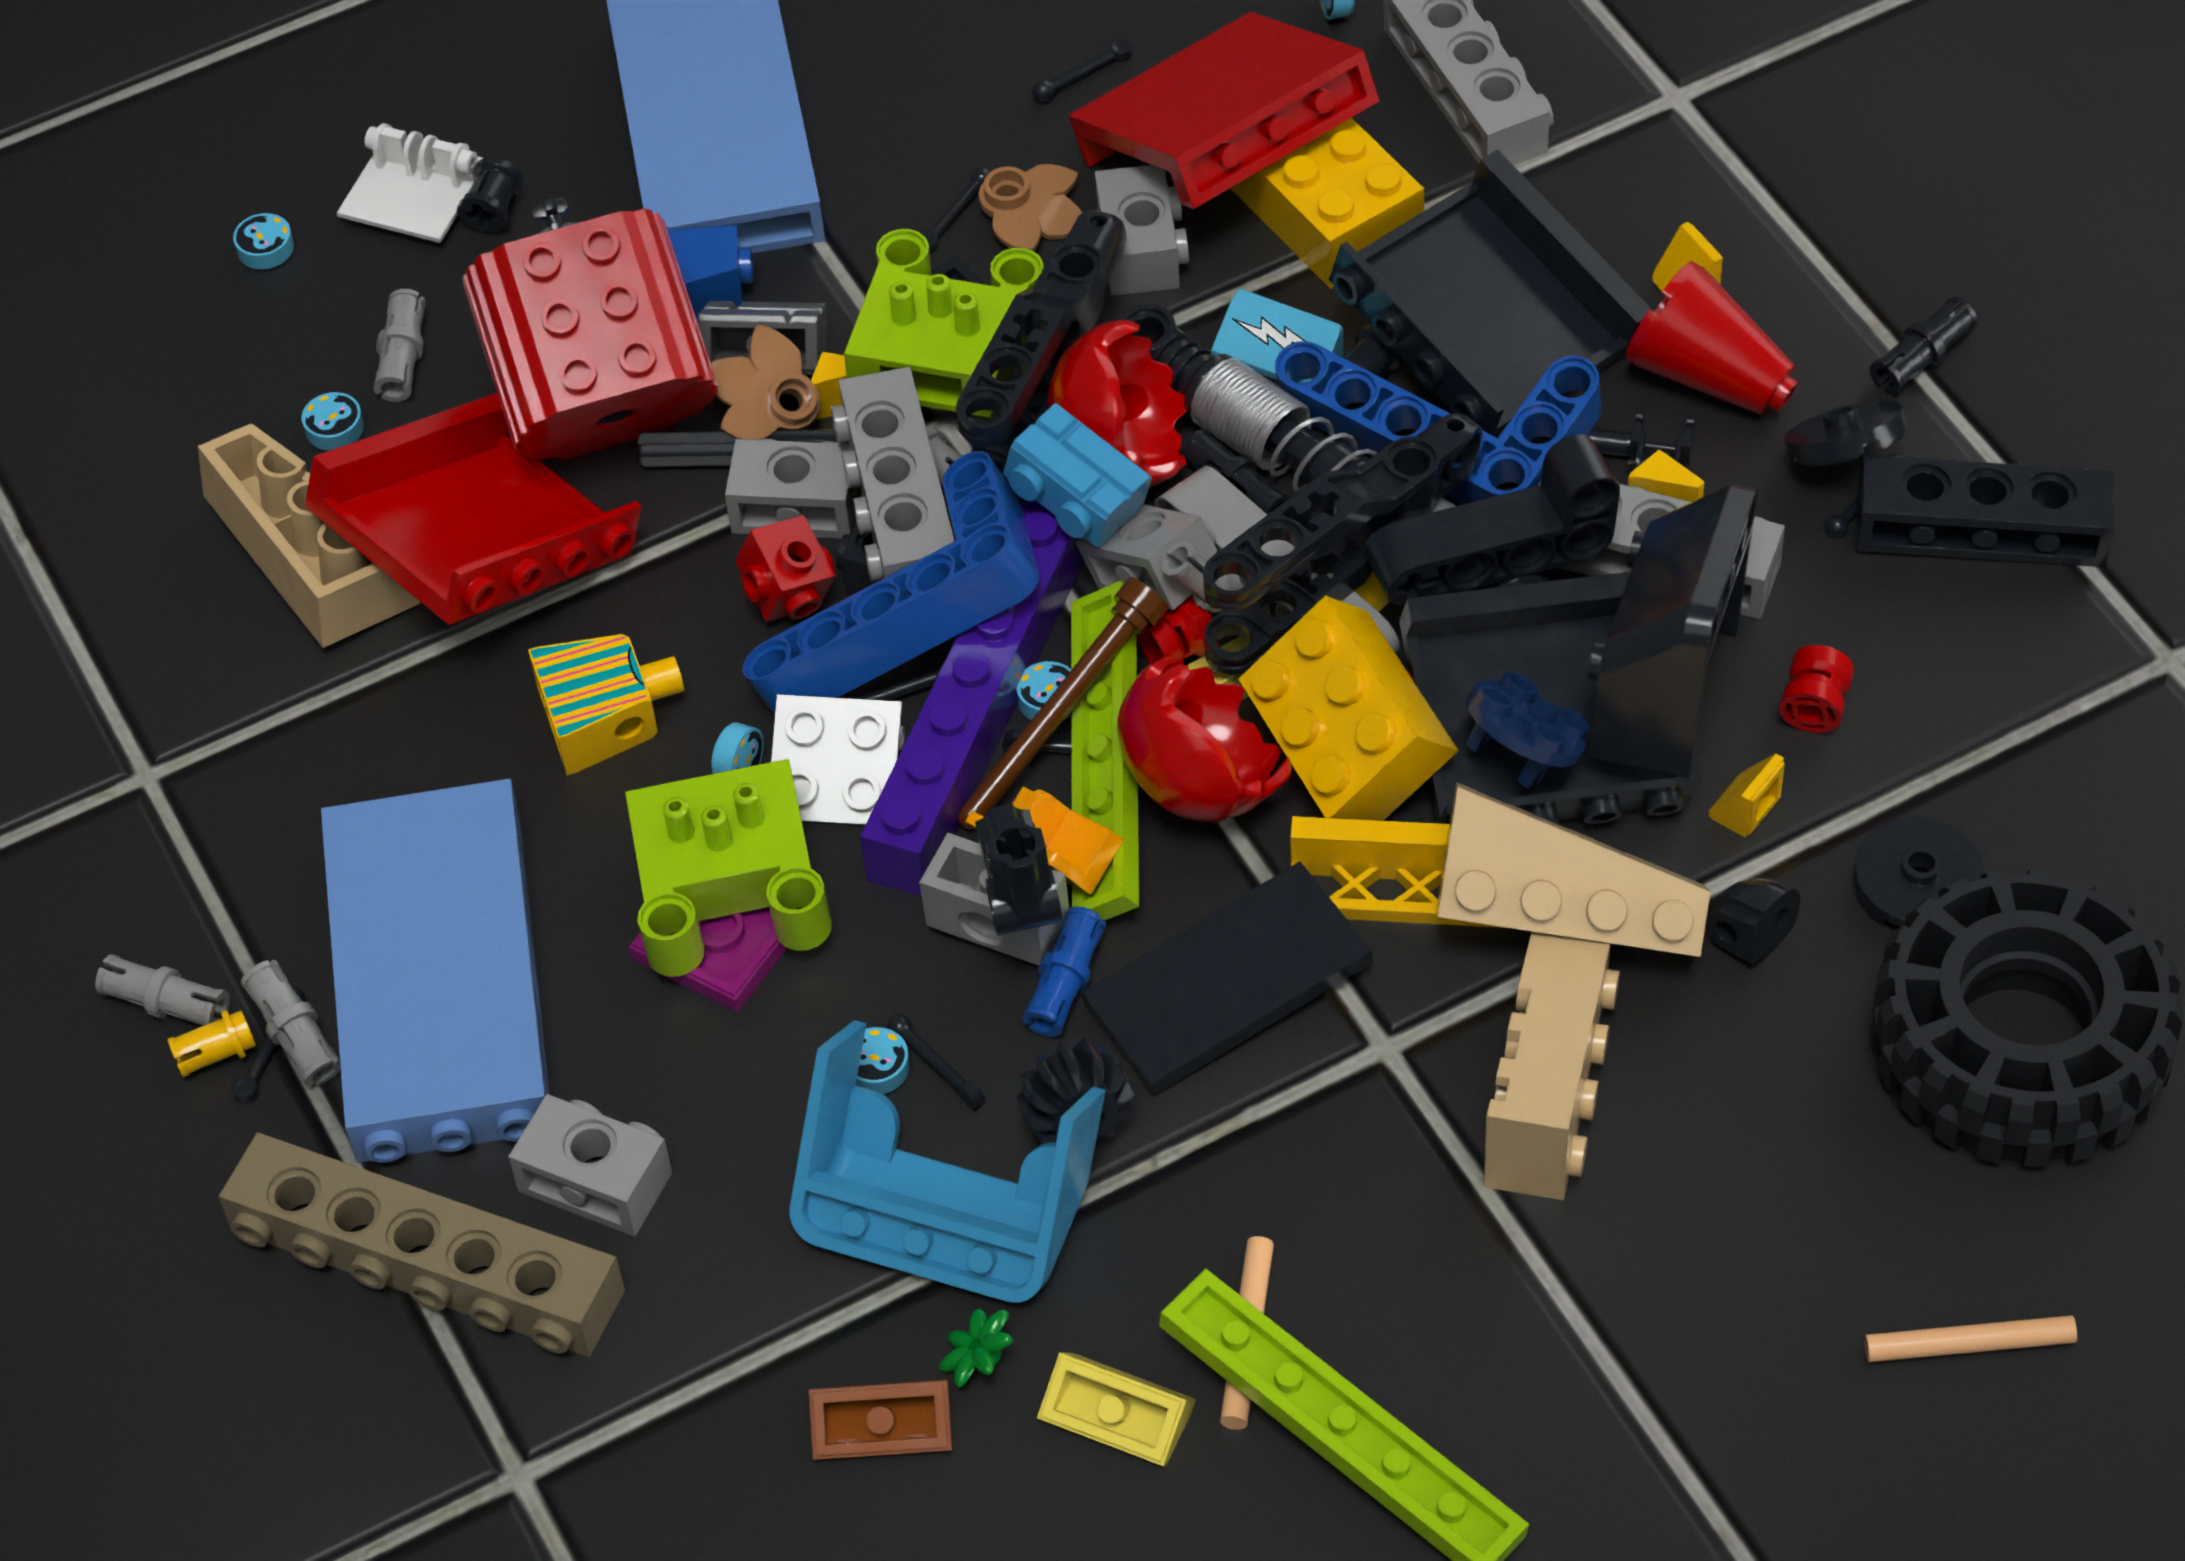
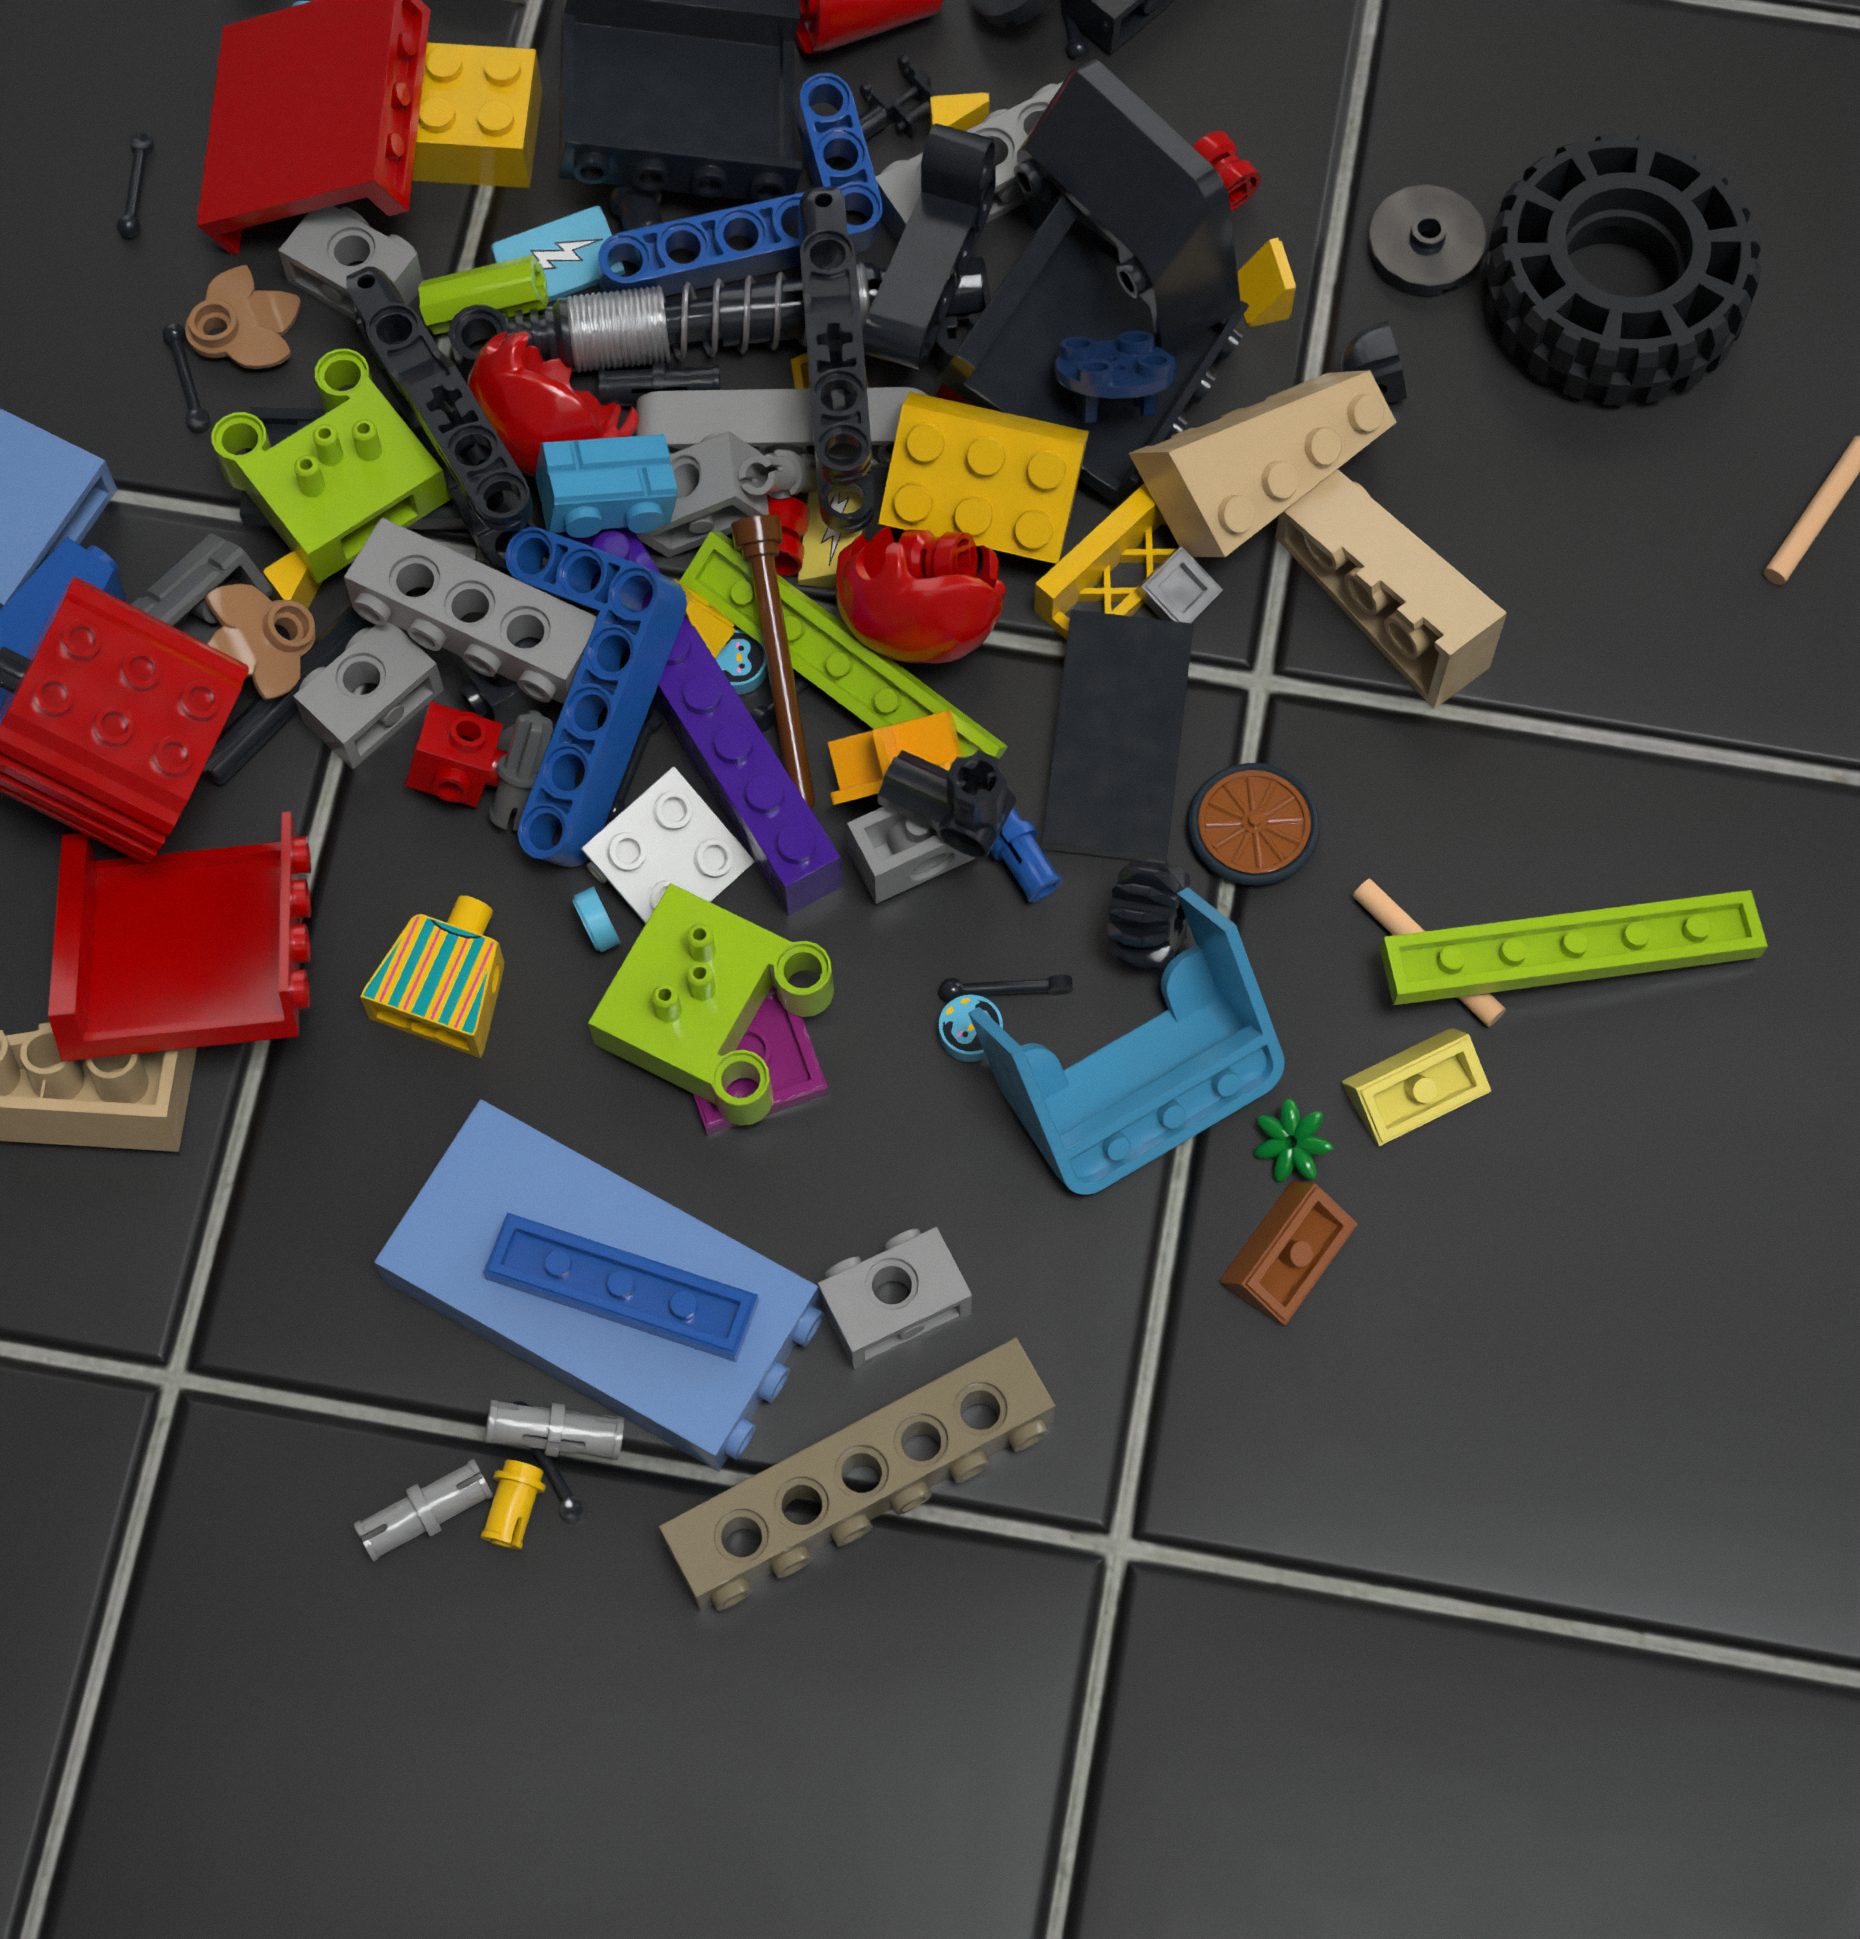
camera: 55 degrees left, 15 degrees up
(429, 969) = (621, 1287): none -> blue tile
(822, 592) = (520, 767): none -> dark grey axle
(1048, 630) = (709, 621): none -> yellow slope
(1198, 314) = (502, 285): none -> lime axle
(1242, 732) = (939, 556): none -> red wheel
(1243, 1127) = (1254, 824): none -> dark orange wheel
(1402, 927) = (1178, 588): none -> flat silver tile

